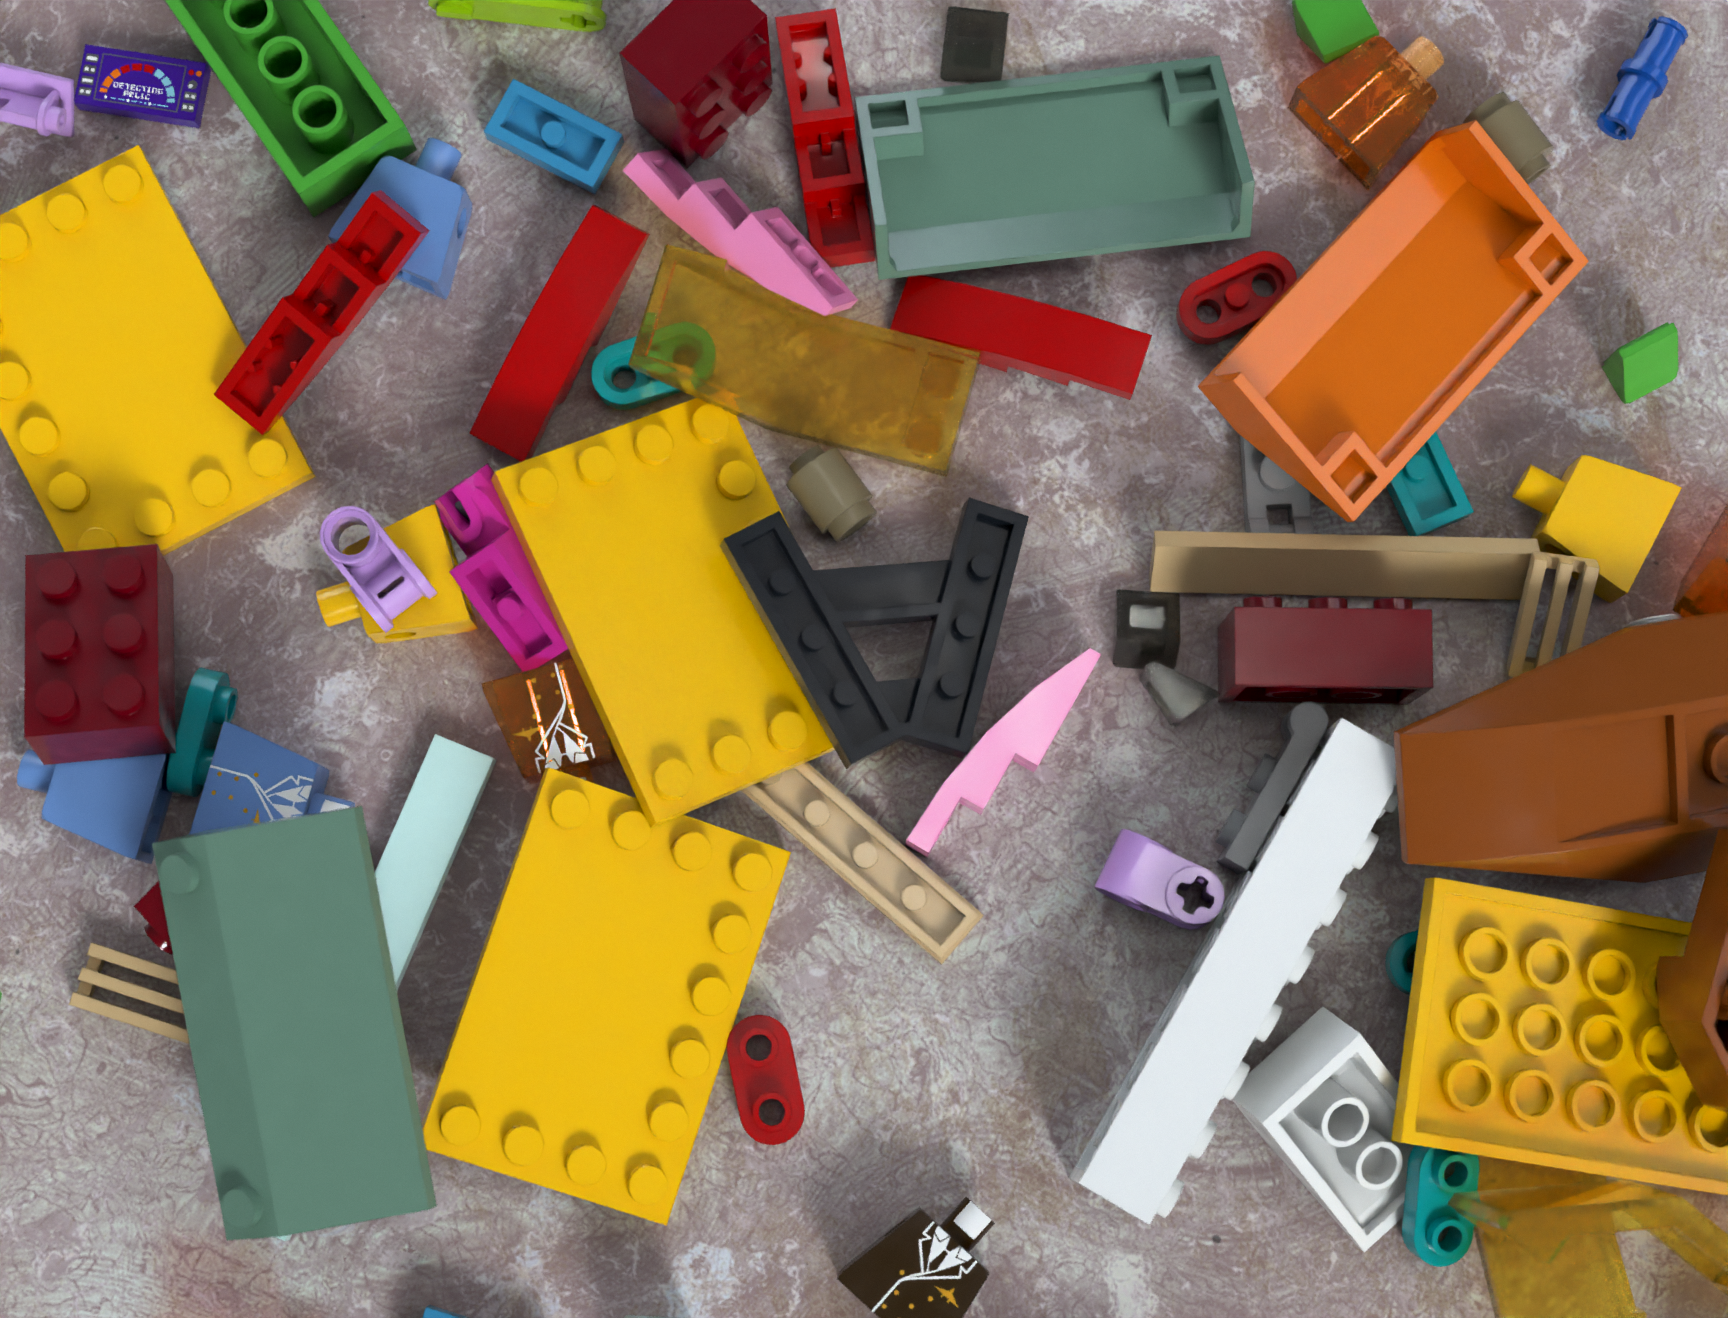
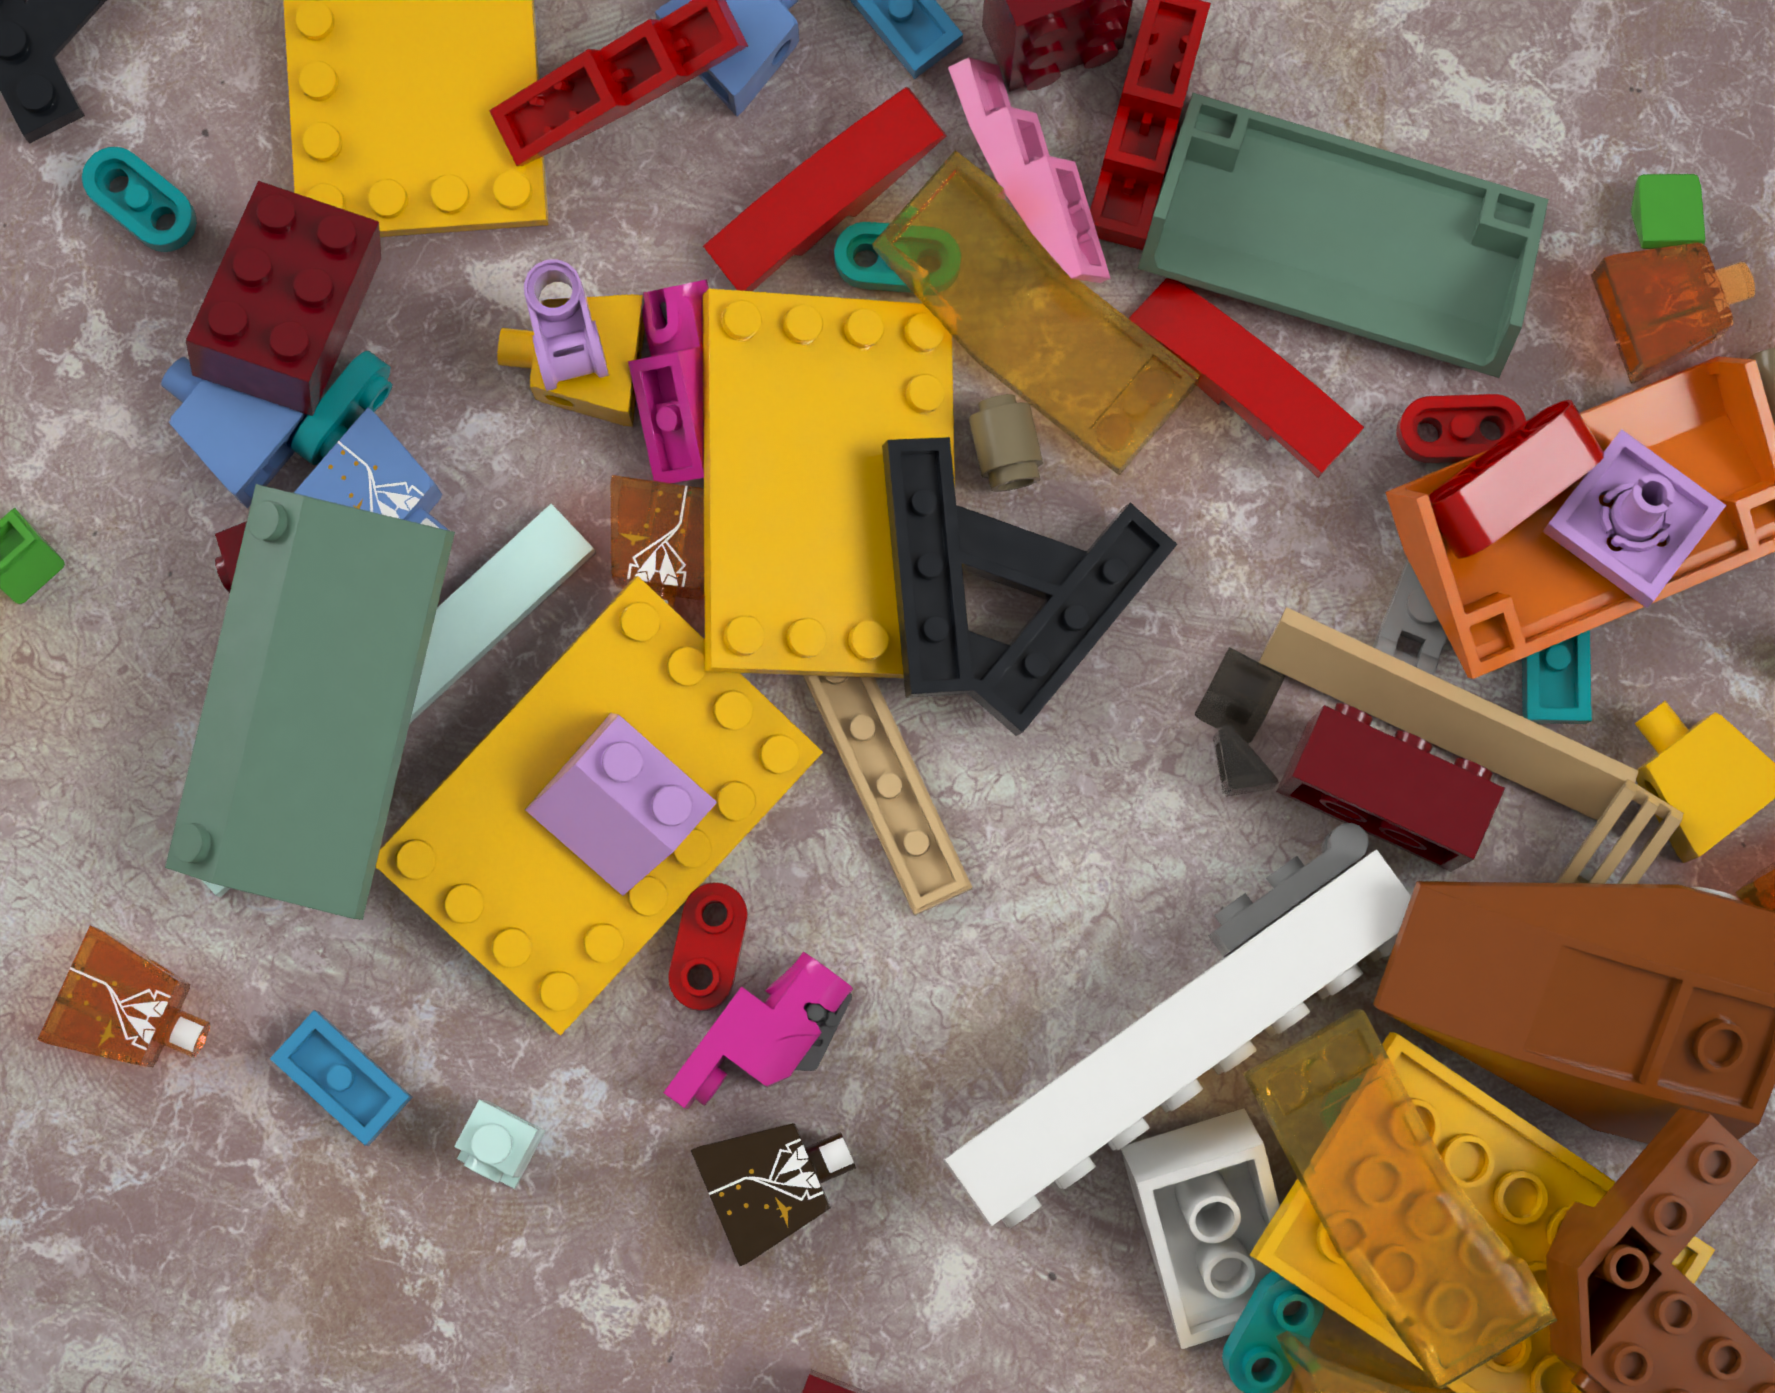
camera: 25 degrees right, 0 degrees up
(92, 977) = (151, 585): tan tile -> none
(628, 987) = (620, 804): none -> lavender slope
(860, 1139) = (768, 1037): none -> dark pink plate
(973, 45) = (1323, 92): clear smoke slope -> none
(1018, 737) = (1078, 739): bright pink slope -> none
(1147, 878) = (1139, 918): lavender piece -> none
(1309, 322) = (1514, 478): none -> beam
(1436, 290) = (1647, 501): none -> lavender plate
(1505, 1036) = (1392, 1202): none -> clear yellow windscreen

